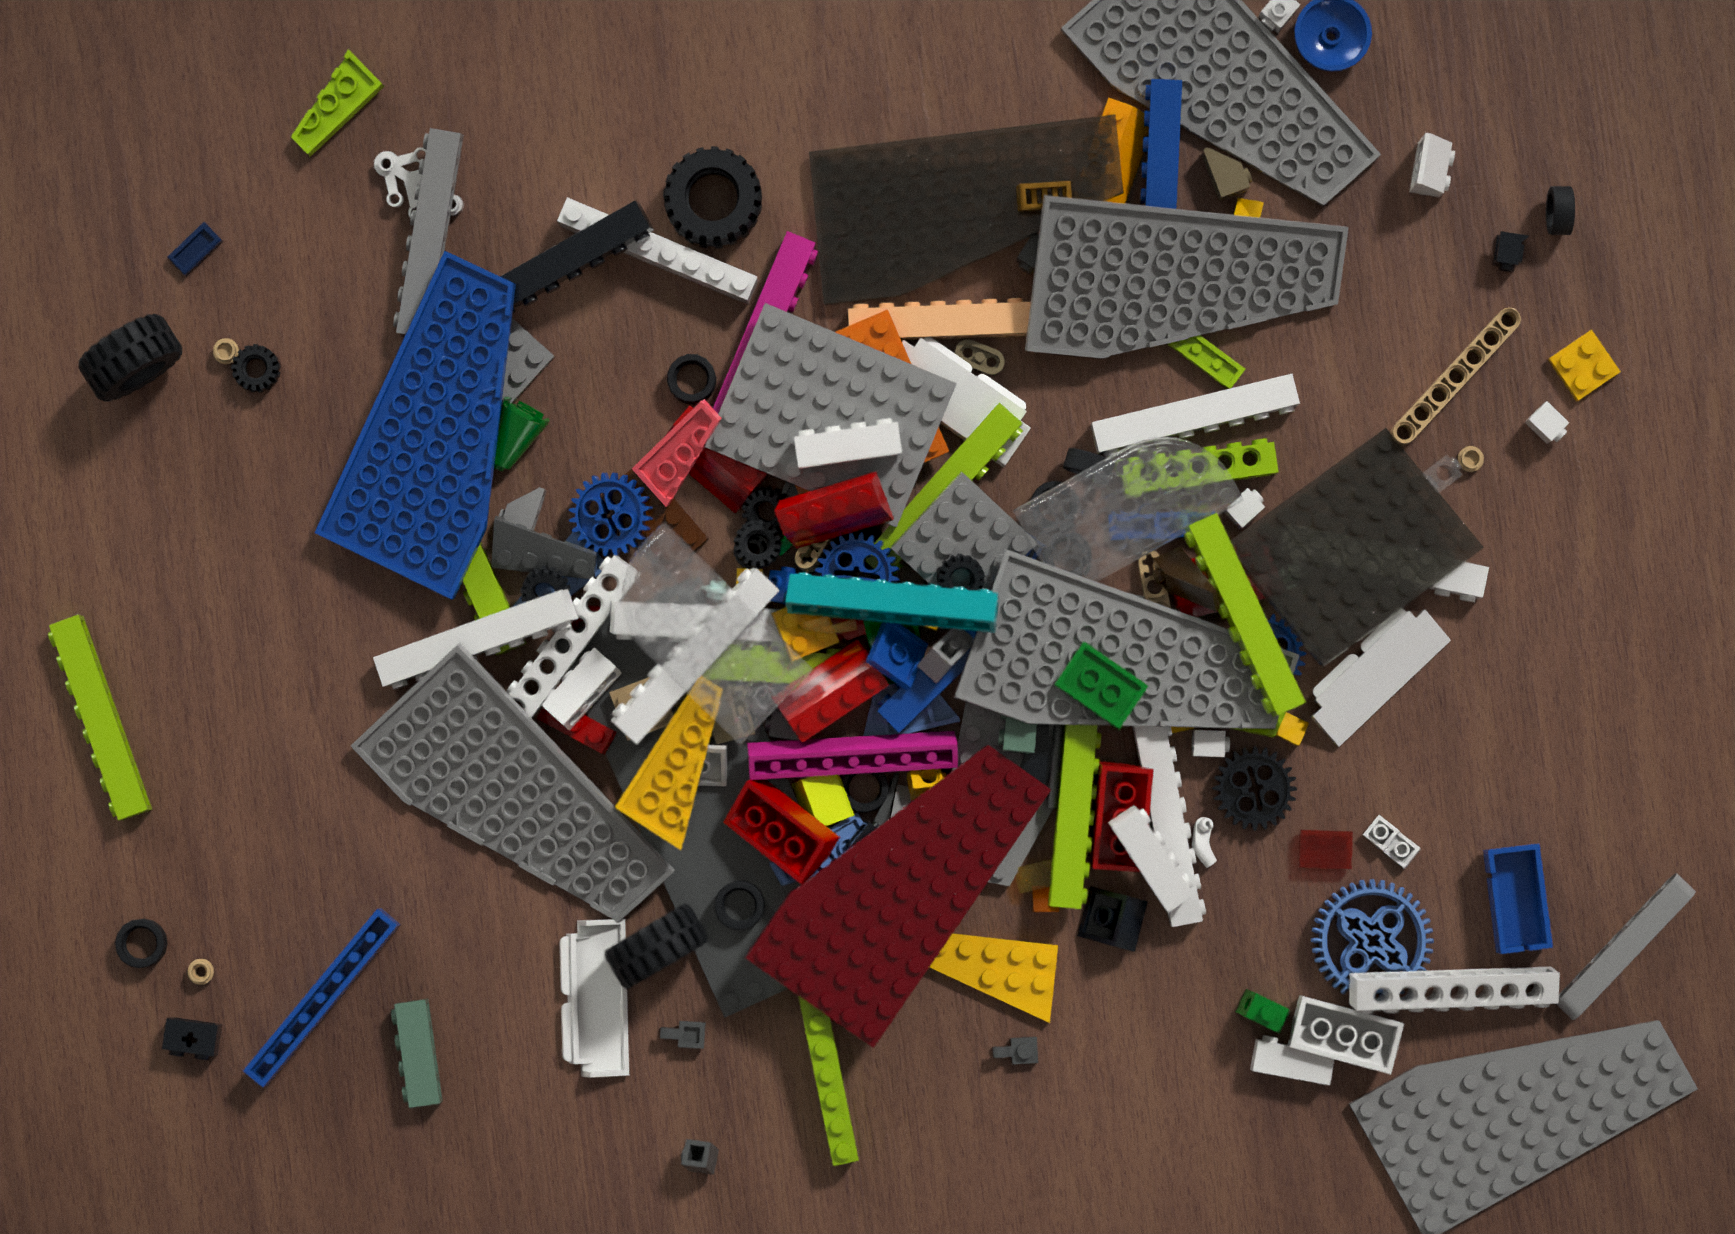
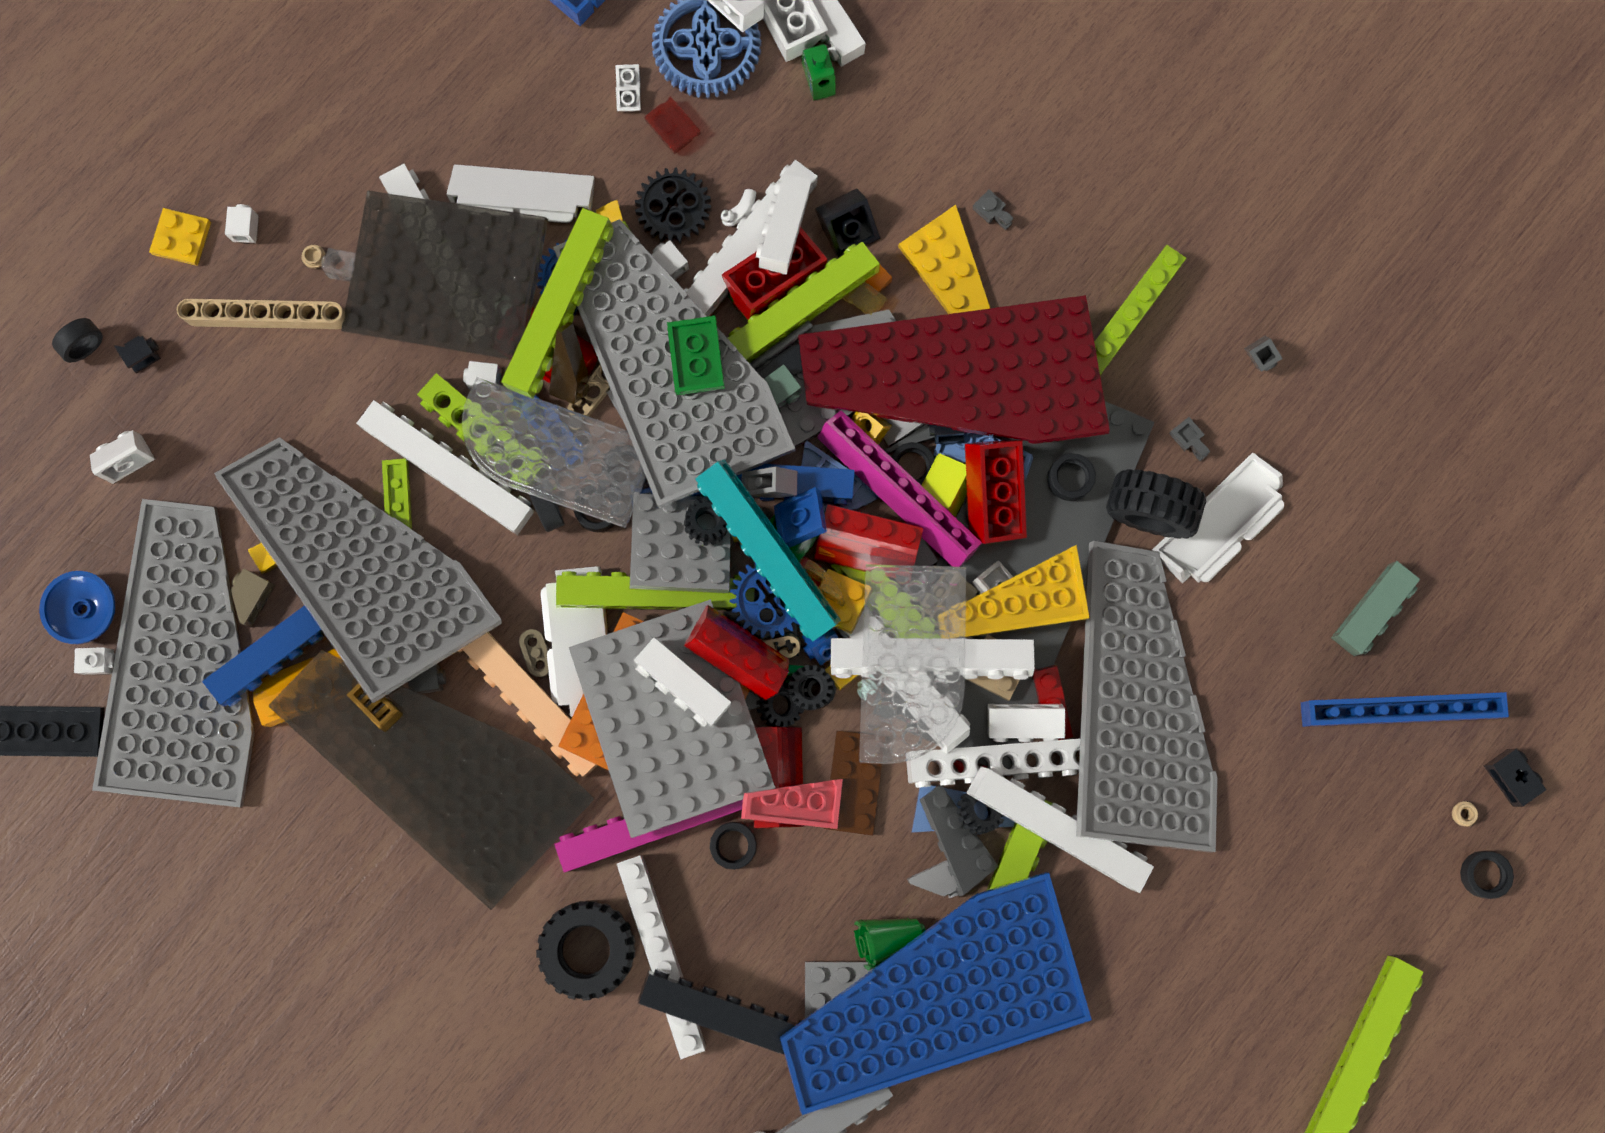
camera: 135 degrees left, 5 degrees down
(590, 524) = (903, 823): blue gear -> none

